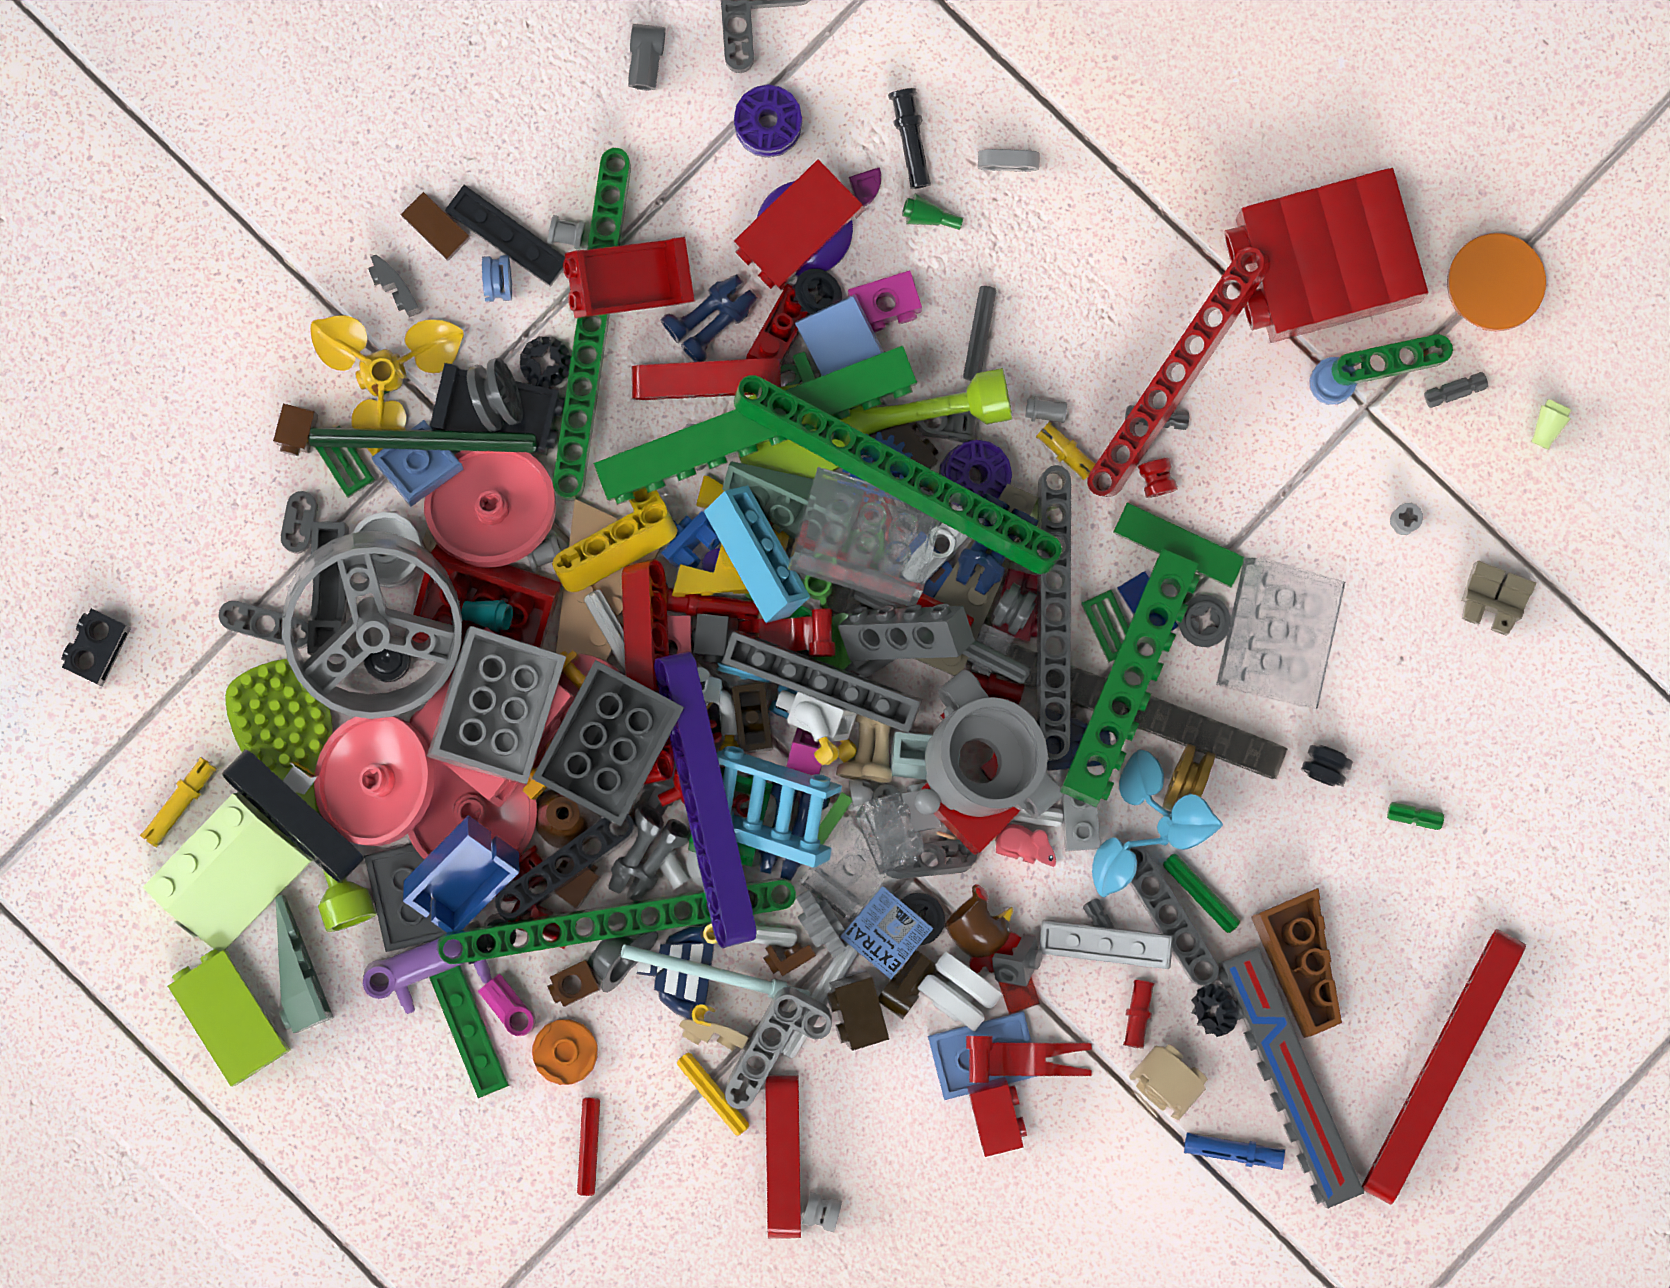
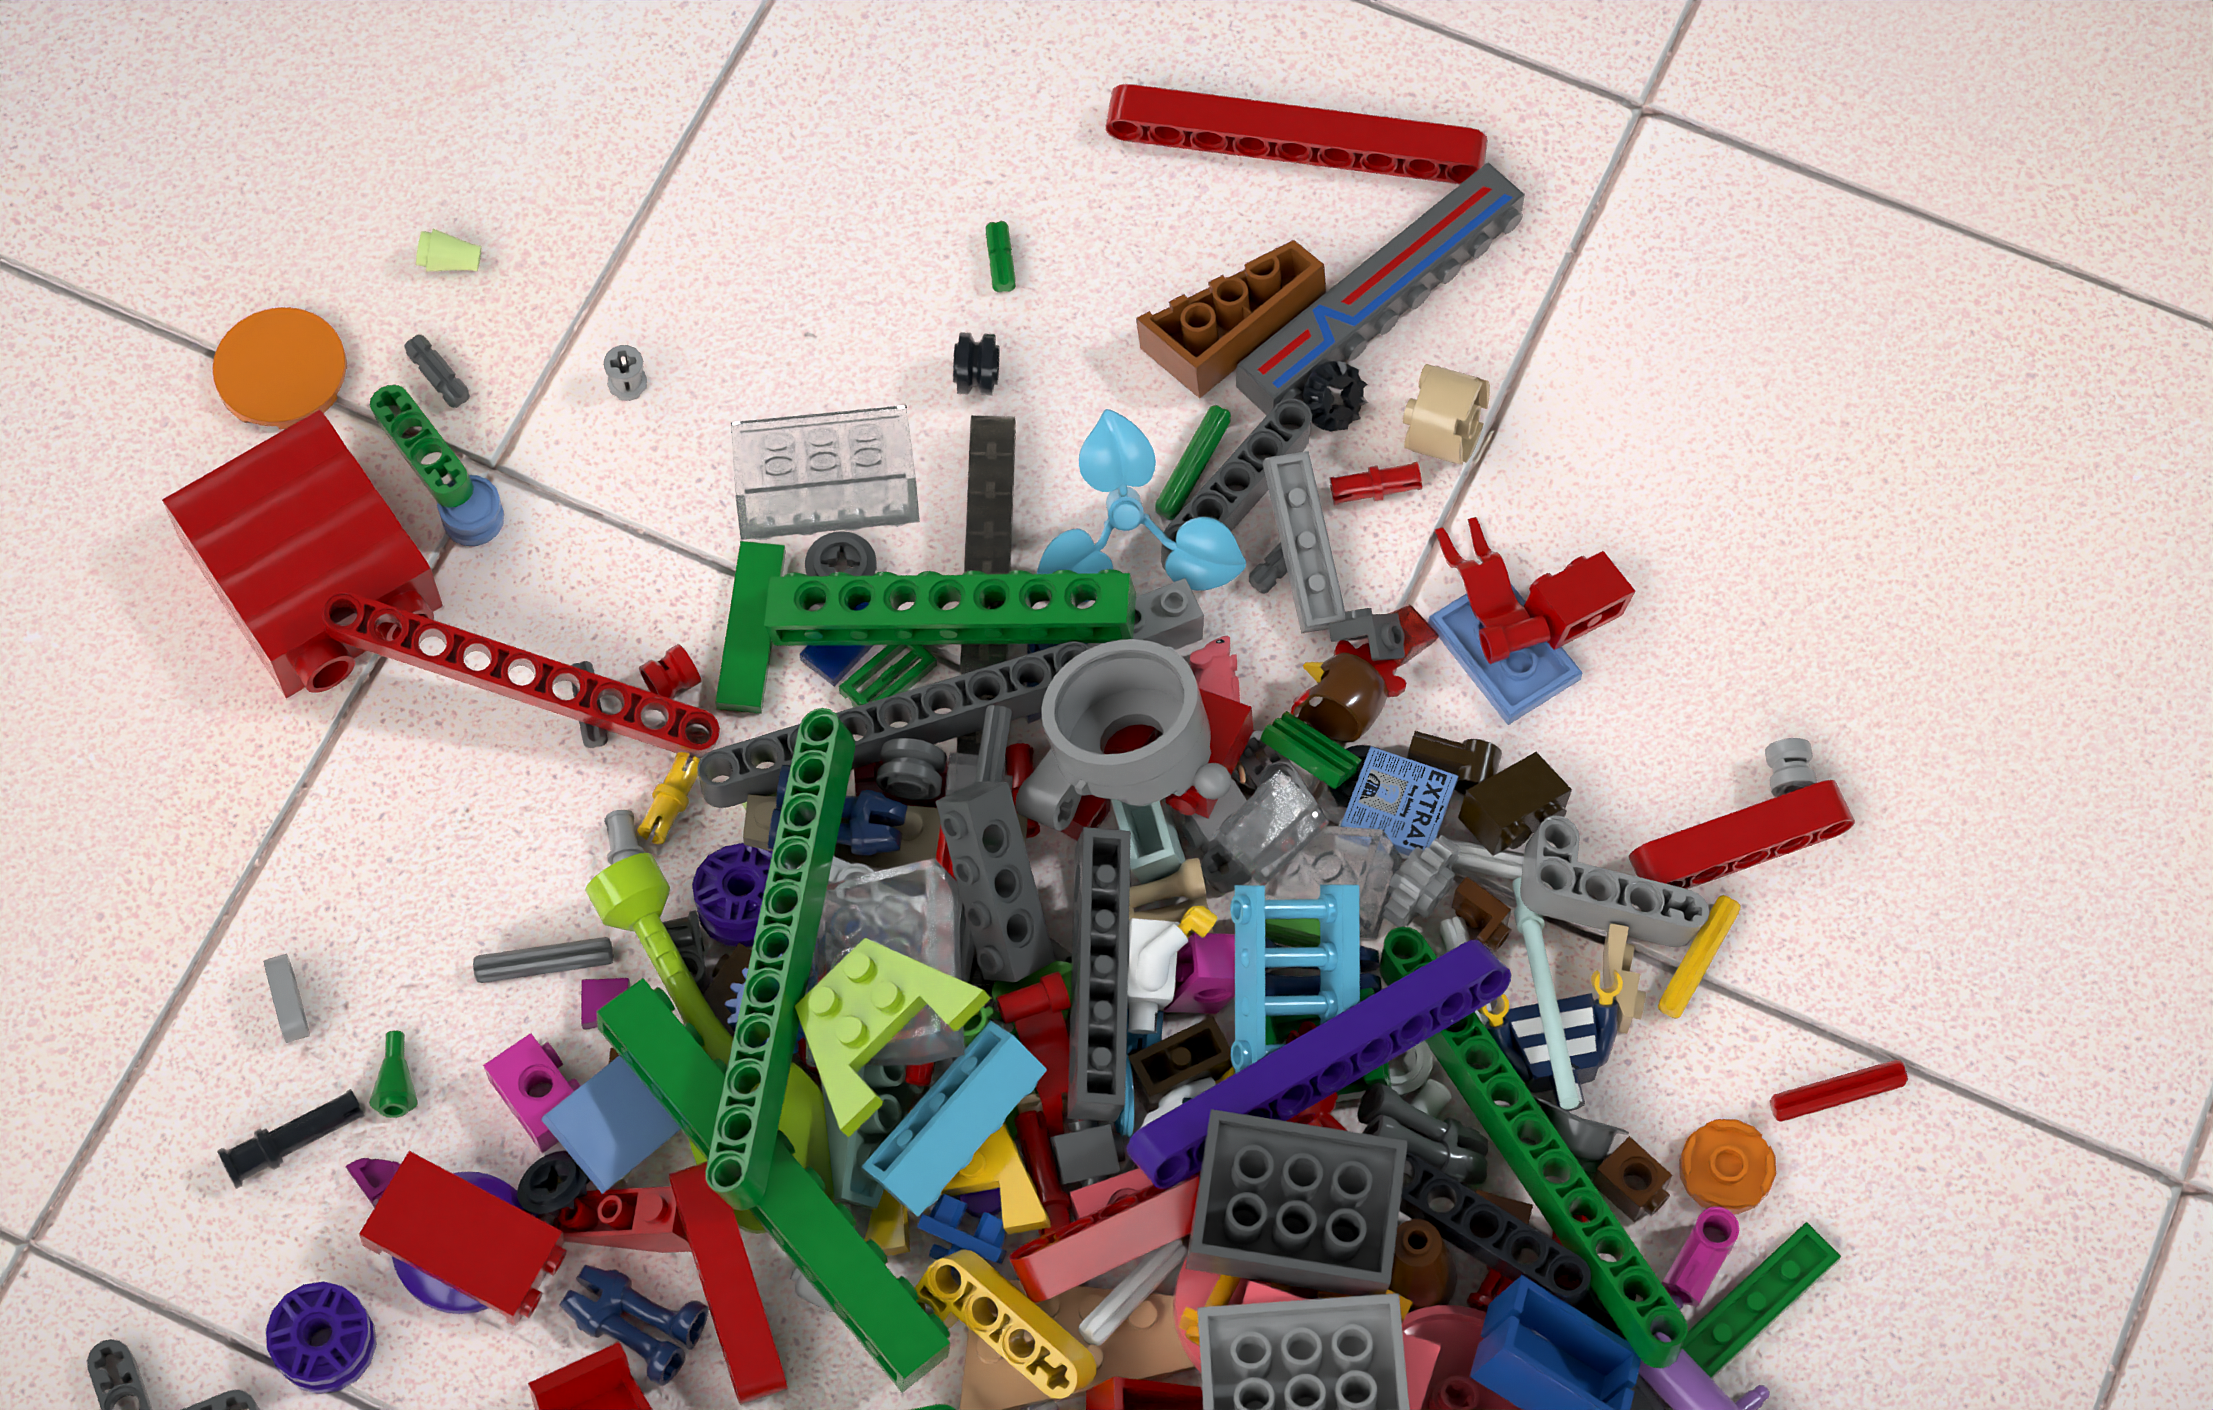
camera: 110 degrees left, 20 degrees down
(800, 368) = (672, 1159): green tile -> none
(833, 508) = (863, 1008): none -> lime wing
(860, 791) = (1220, 900): light grey hinge -> none
(938, 363) = (596, 994): none -> magenta tile
(946, 890) = (1310, 750): none -> green tile
(956, 996) = (1438, 685): white wheel -> none
(1188, 776) = (1054, 501): pearl gold wheel -> none
(1235, 1151) = (1494, 311): blue pin -> none
(1509, 601) = (684, 247): dark tan hips -> none

